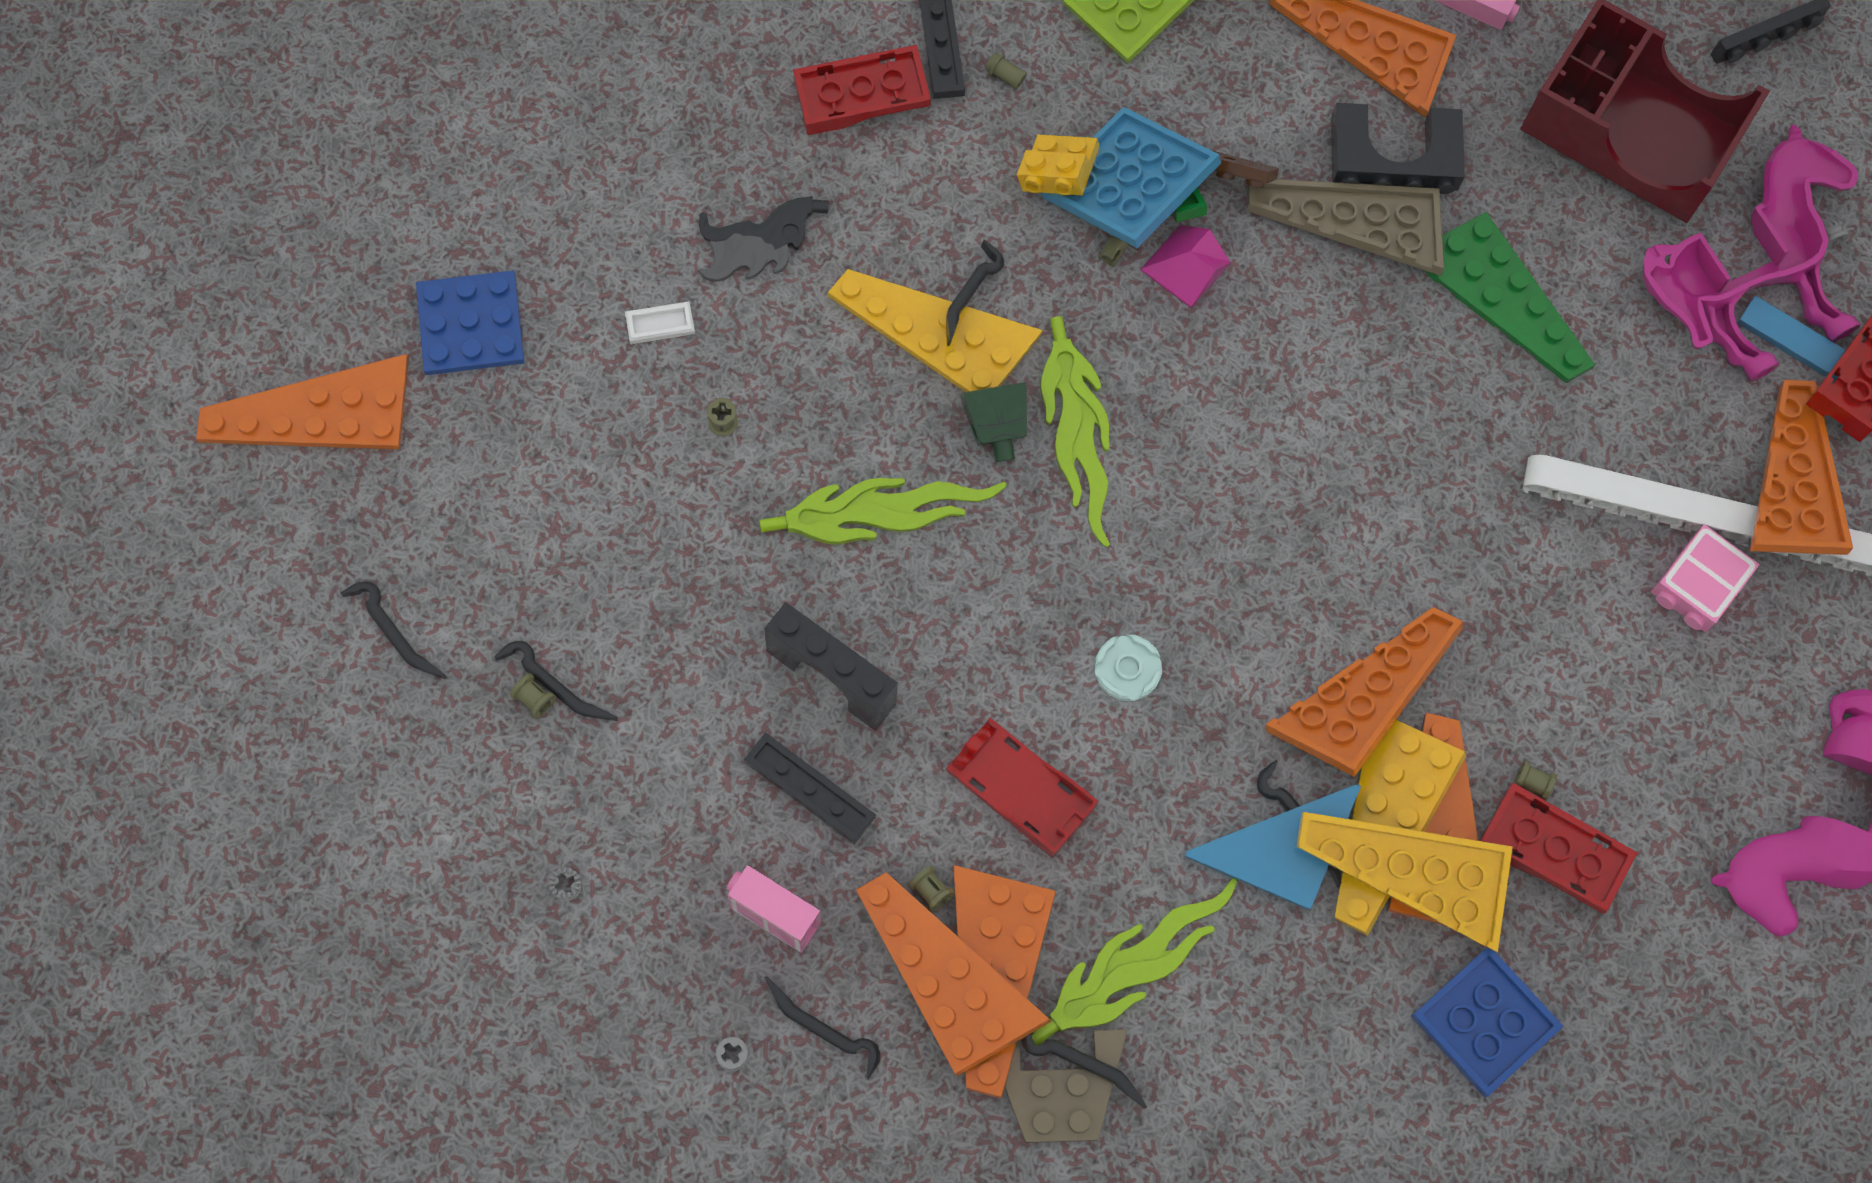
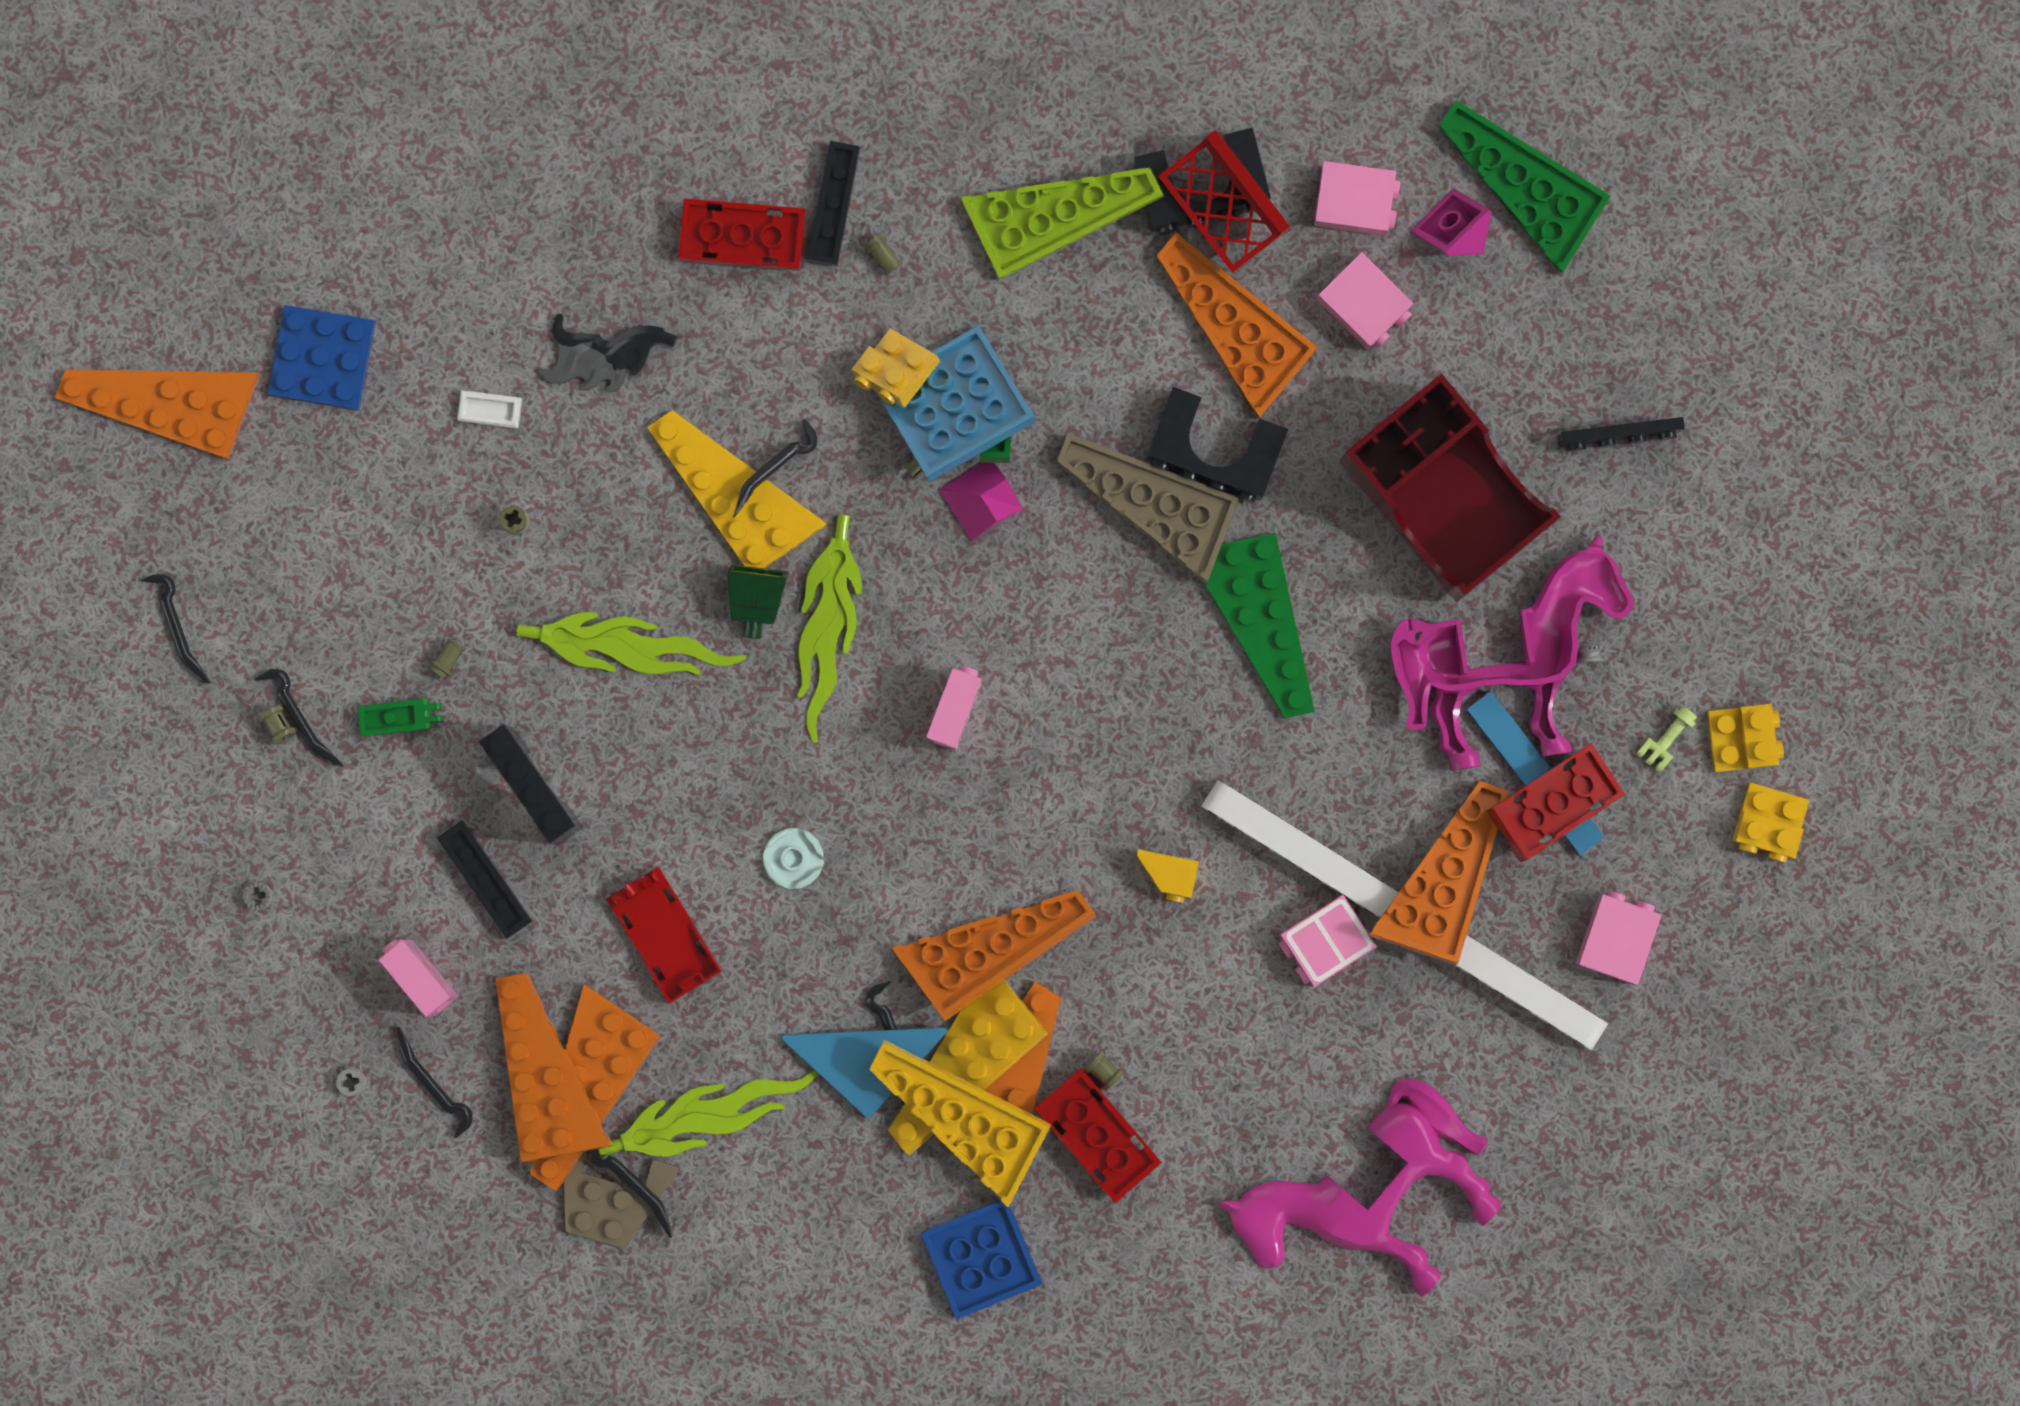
camera: 25 degrees right, 15 degrees up
(662, 649) = (397, 717): none -> green hinge
(694, 576) = (446, 659): none -> olive pin
(931, 889) = (565, 1006): olive bush -> none
(1242, 461) = (955, 707): none -> bright pink brick
(1254, 172) = (1054, 419): reddish brown tile -> none
(1519, 561) = (1170, 874): none -> yellow slope

